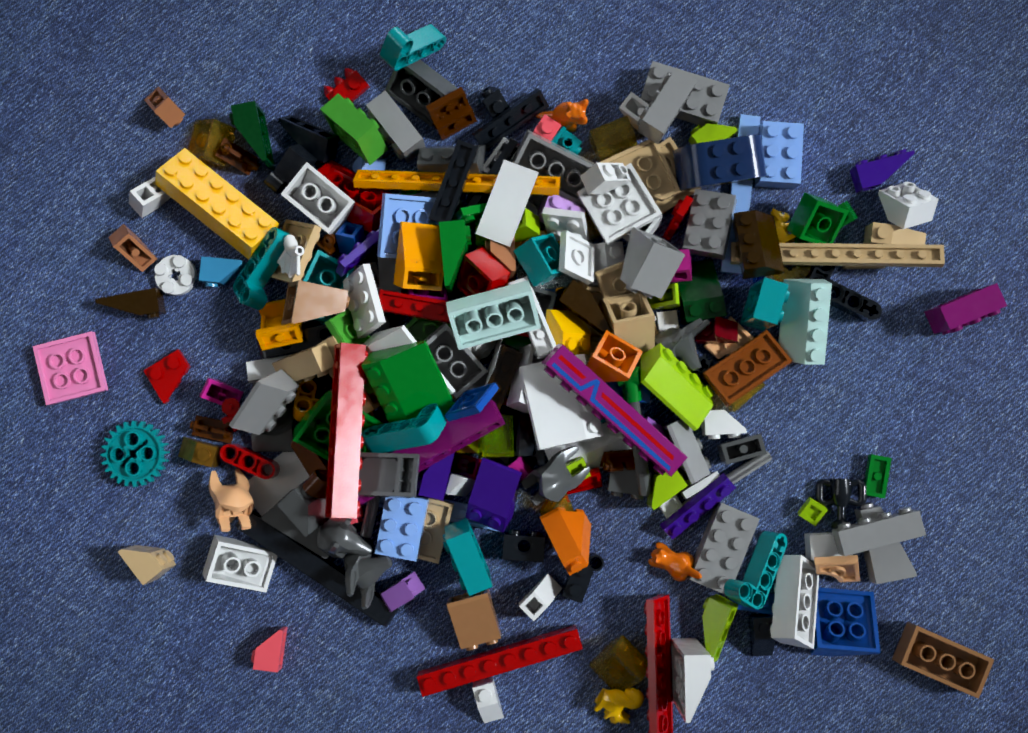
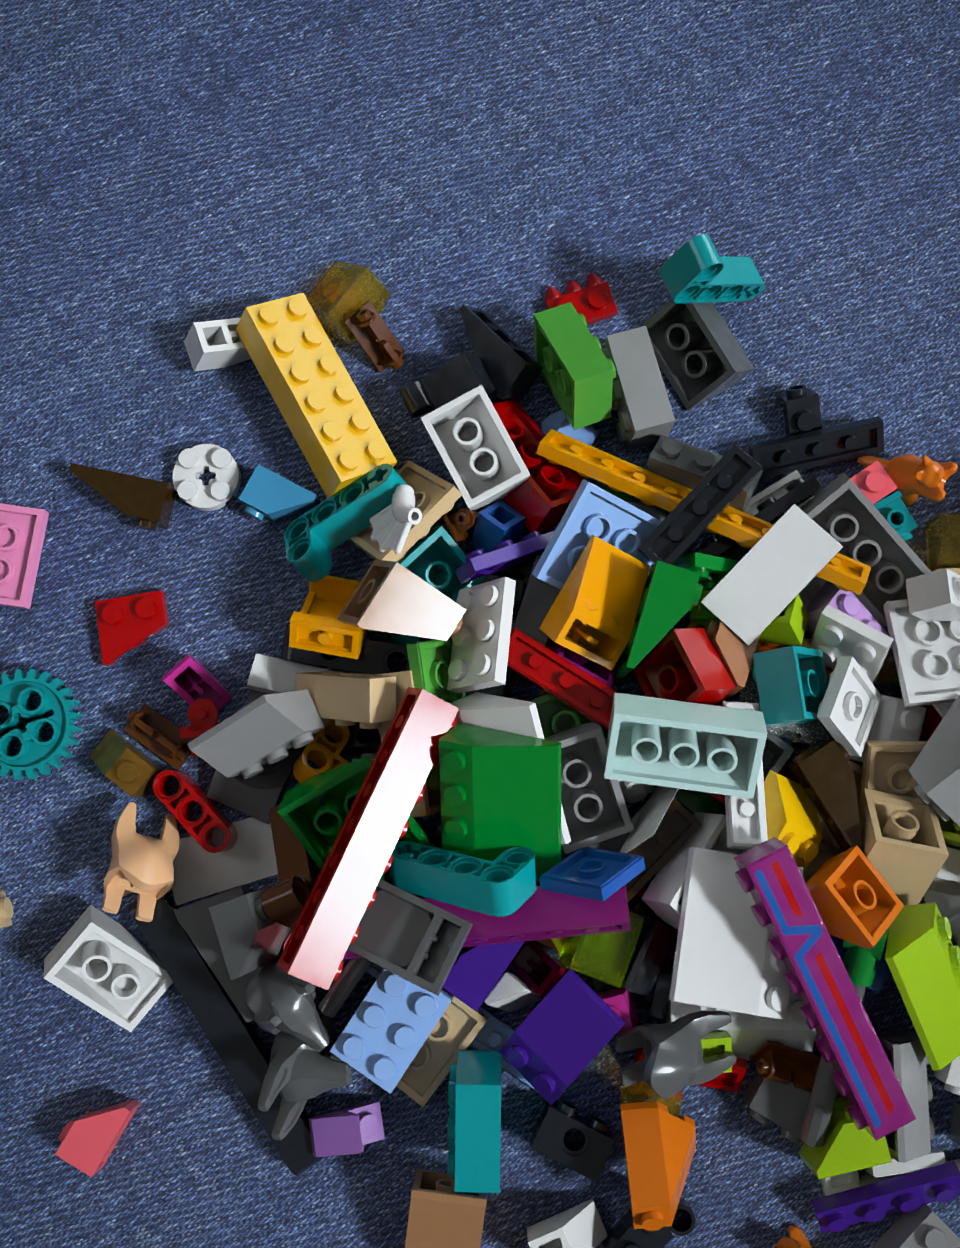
camera: 25 degrees right, 5 degrees down
(132, 248) = (160, 410): nougat slope -> none
(165, 107) = (299, 224): nougat slope -> none
(252, 124) = (418, 298): dark green slope -> none
(451, 113) = (729, 402): reddish brown slope -> none

